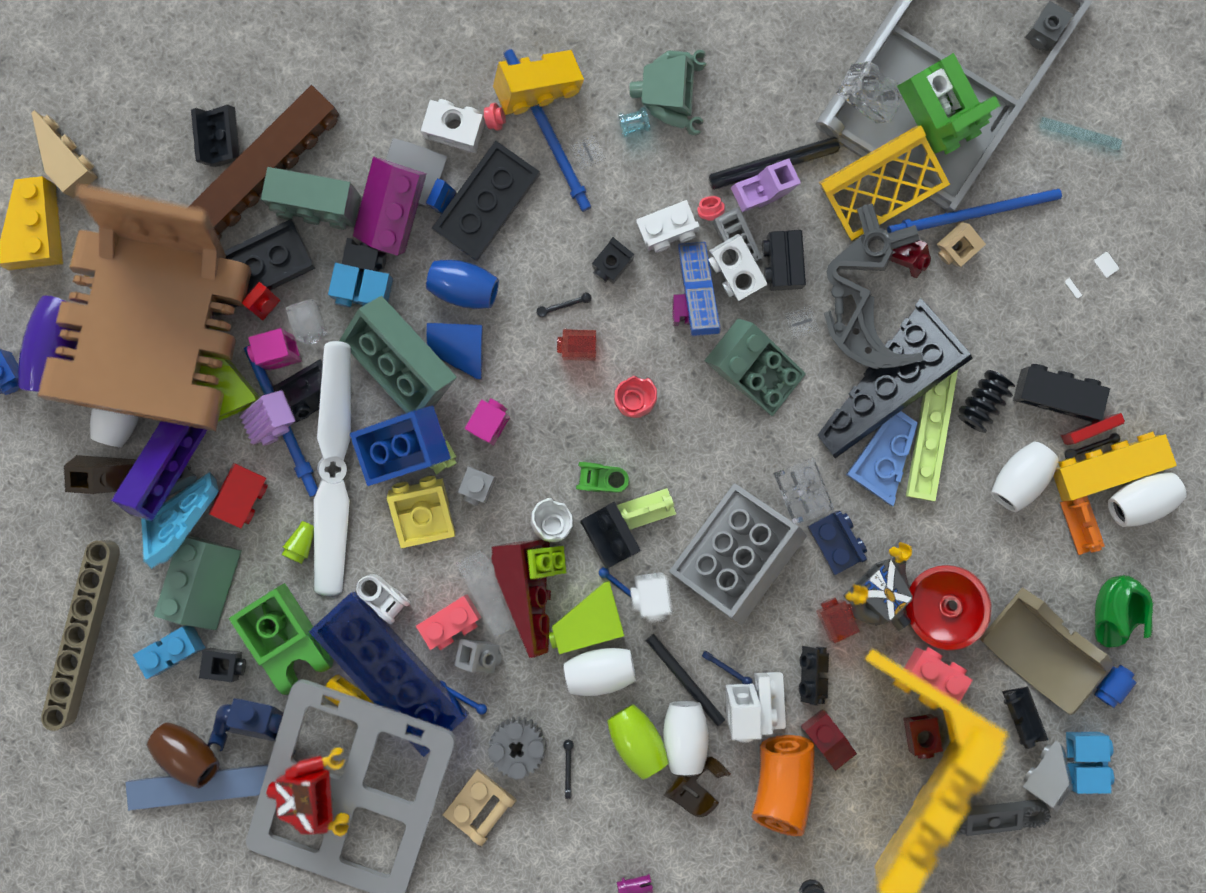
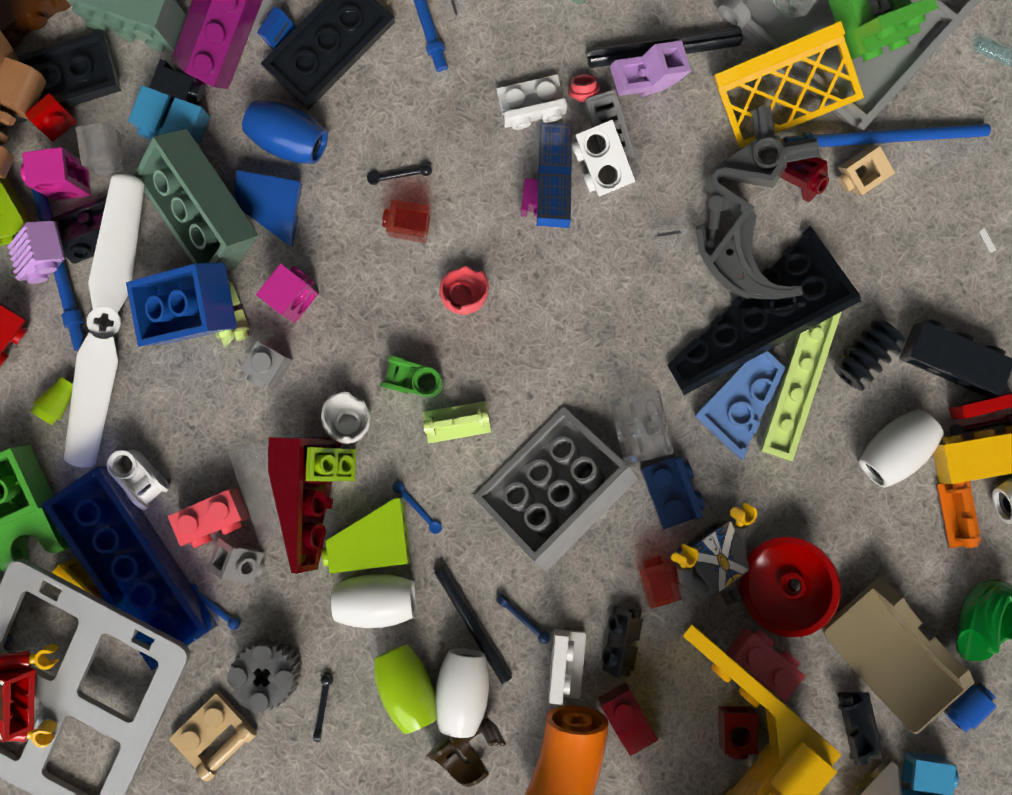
camera: 10 degrees right, 0 degrees up
(420, 512) = (197, 385): light yellow plate -> none
(610, 535) = (410, 445): black bracket -> none
(611, 273) = (463, 143): black brick -> none
(651, 596) = (441, 522): white brick -> none
(743, 712) = (532, 673): white brick -> none
(755, 366) = (608, 275): sand green slope -> none
(785, 260) = (660, 159): black brick -> none

